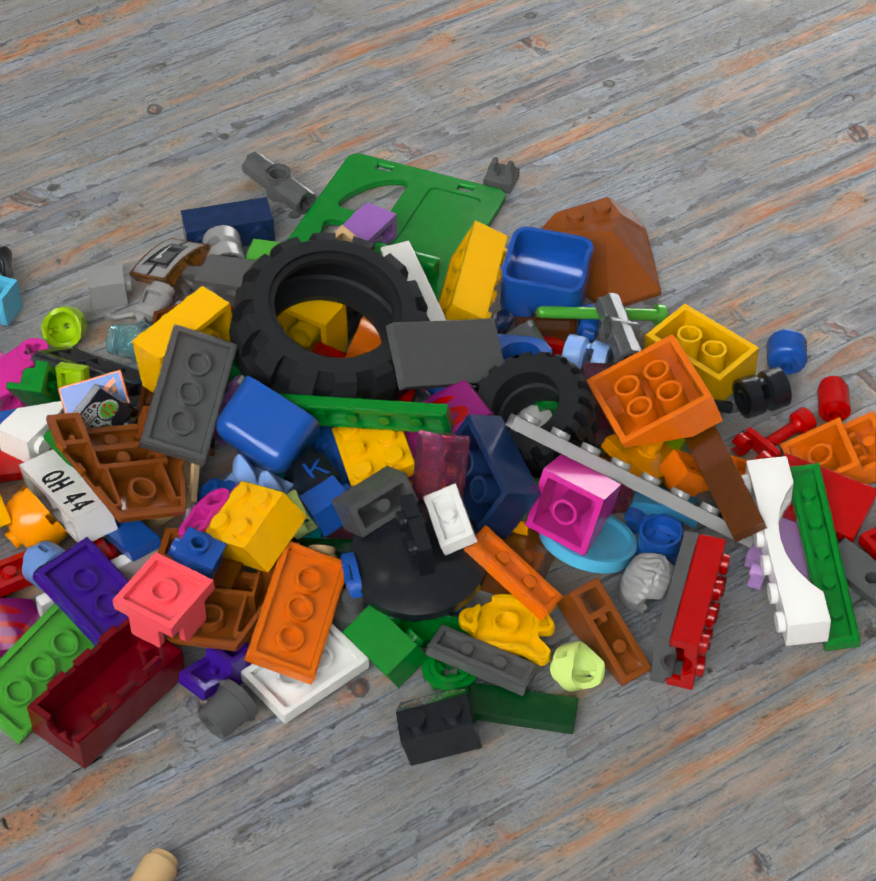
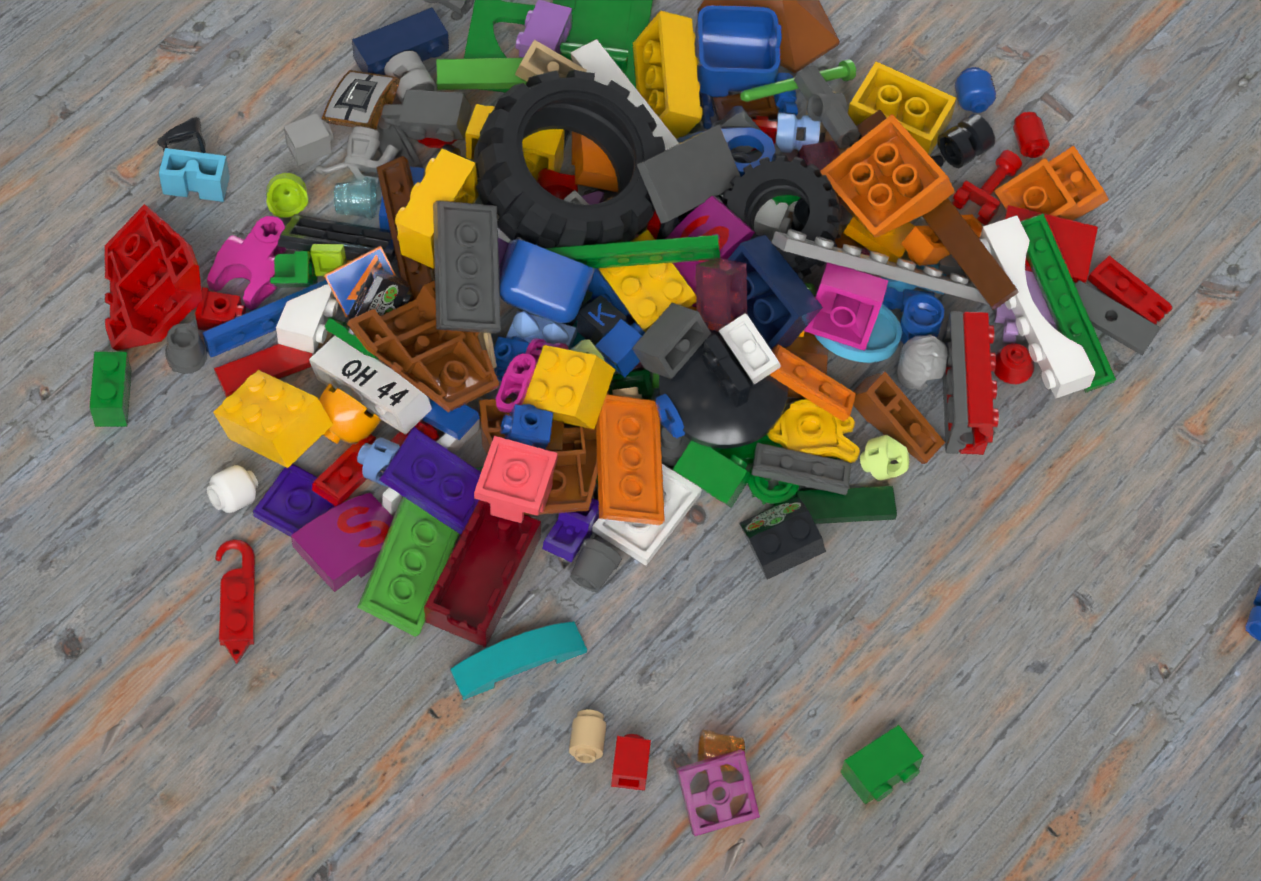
camera: 20 degrees left, 15 degrees up
(113, 780) = (517, 655): none -> teal slope
(750, 606) = (1014, 364): none -> red cone

